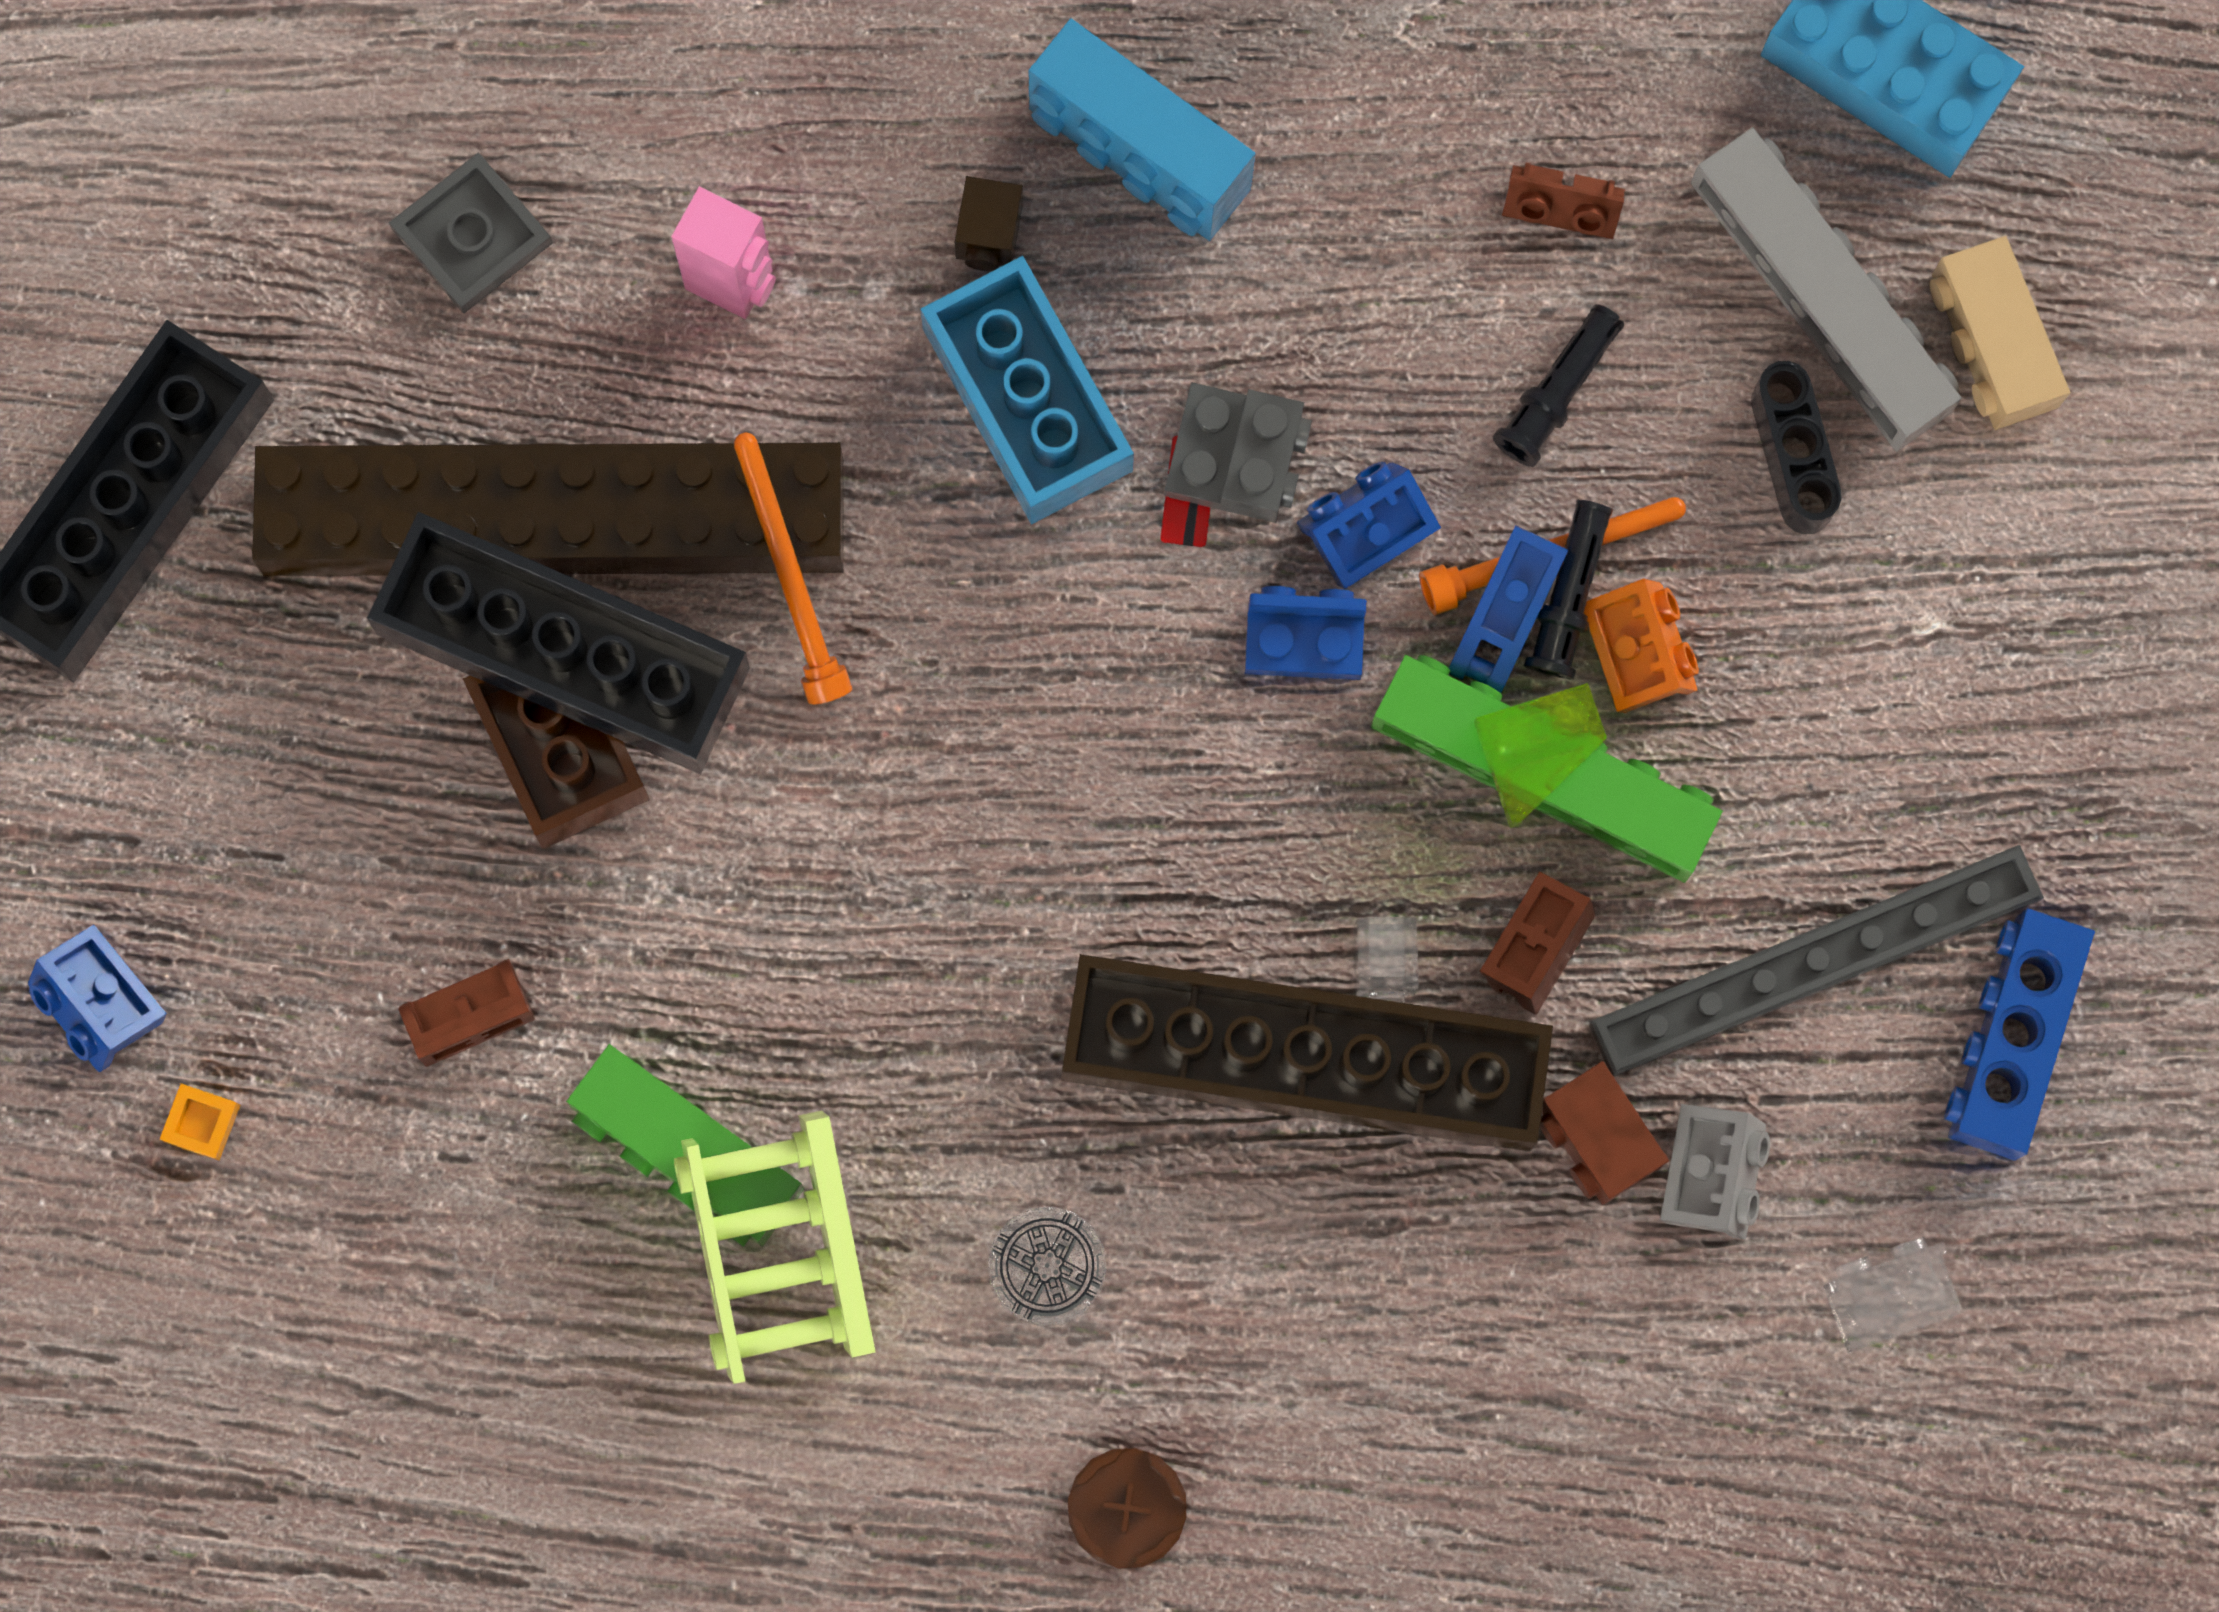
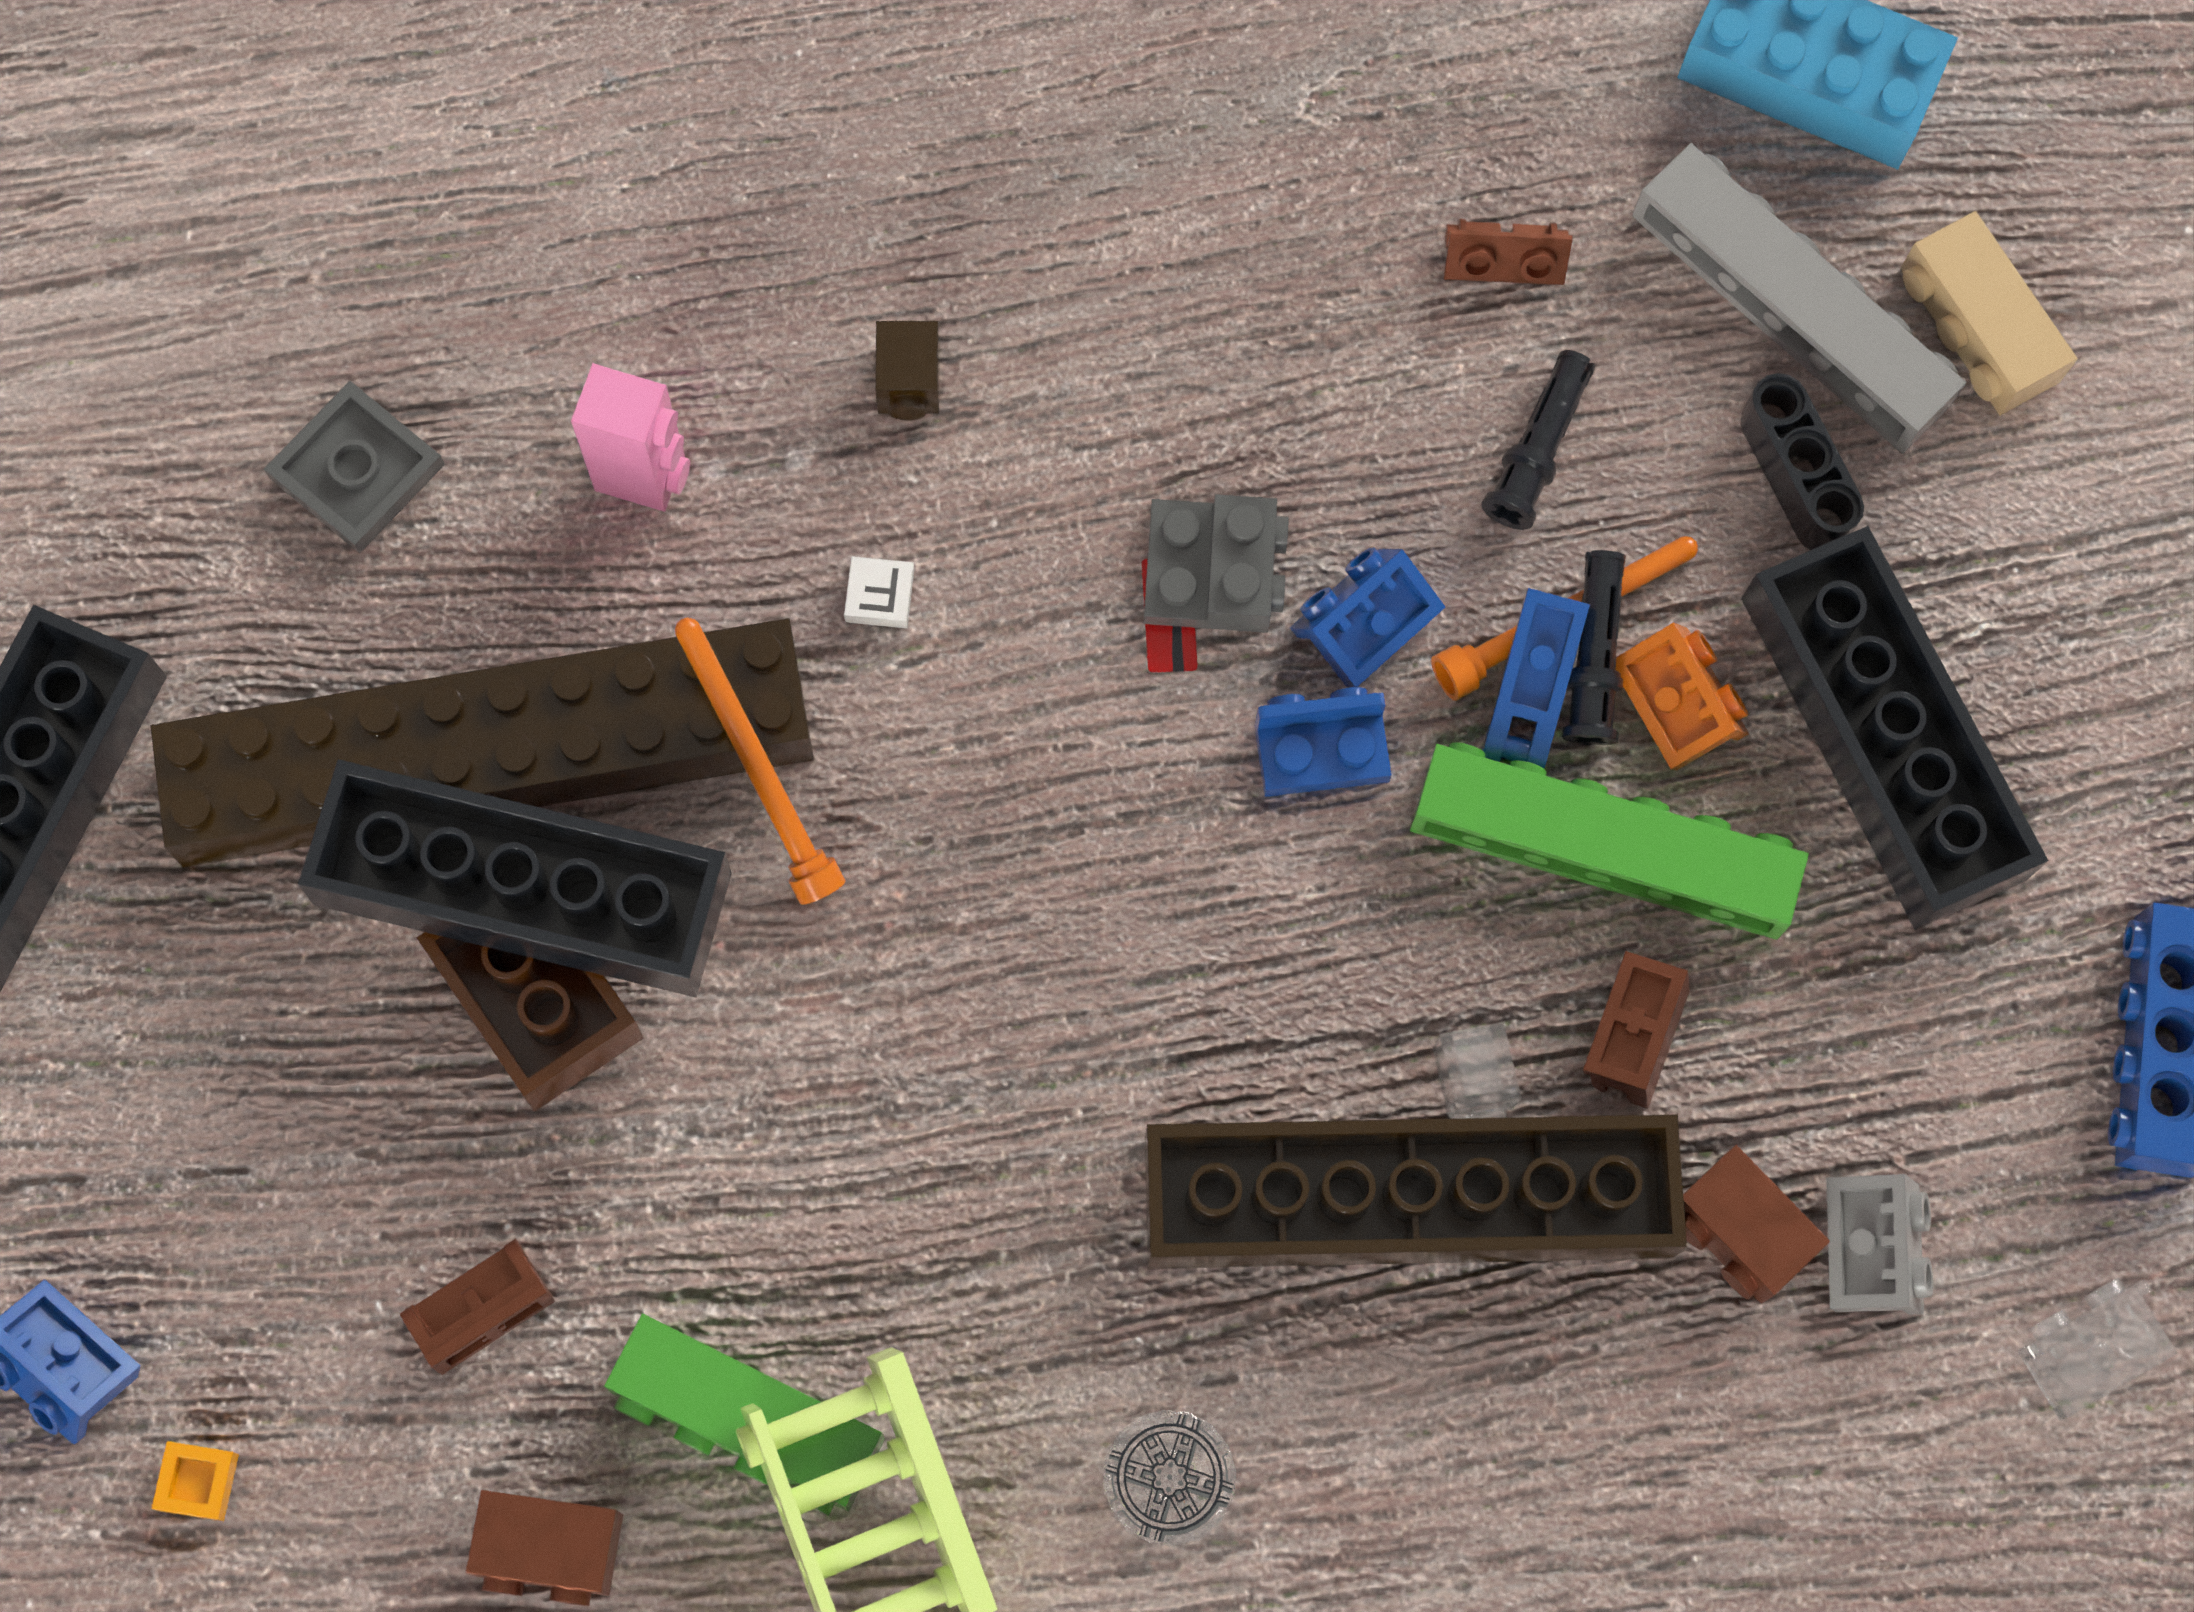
camera: 10 degrees left, 5 degrees down
(492, 1229) = (544, 1545): none -> copper brick
(927, 427) = (879, 592): none -> white tile
(1027, 390) = (980, 532): dark azure brick -> none
(1139, 131) = (1051, 245): dark azure brick -> none
(1538, 746) = (1599, 817): clear neon green wing -> none
(1815, 961) = (1933, 1000): dark grey tile -> none
(1825, 707) = (1892, 728): none -> black brick

